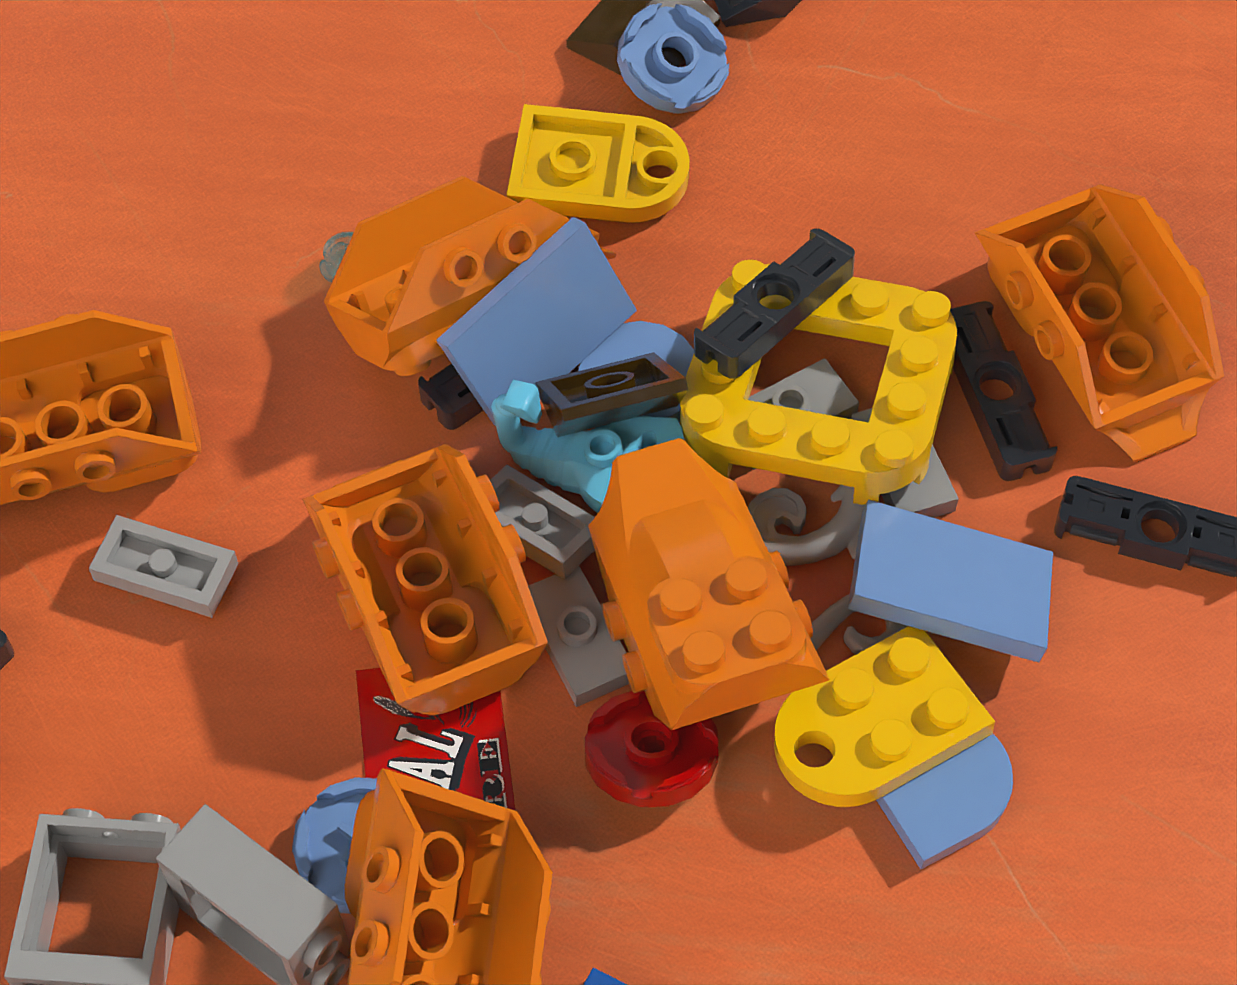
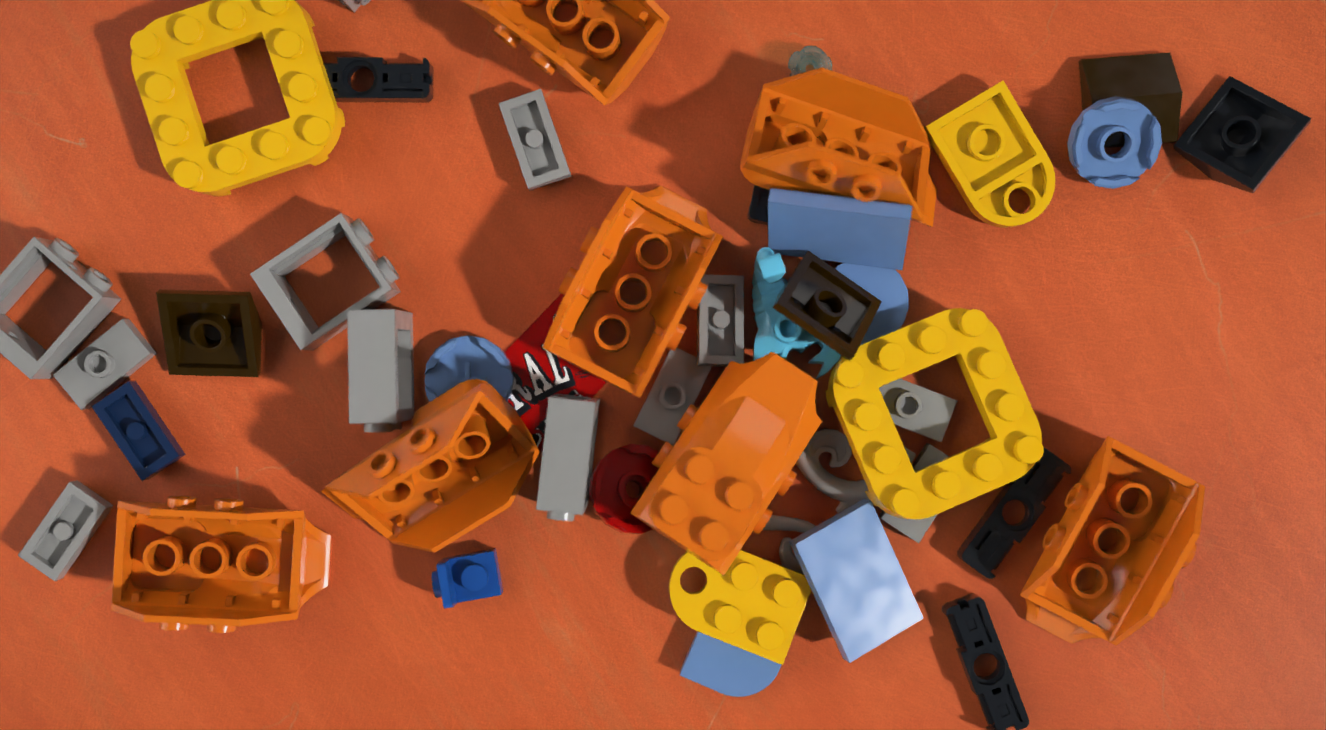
camera: 55 degrees right, 30 degrees up
(546, 767) = (567, 456): none -> light grey window
(750, 329) = (987, 361): black piece -> none

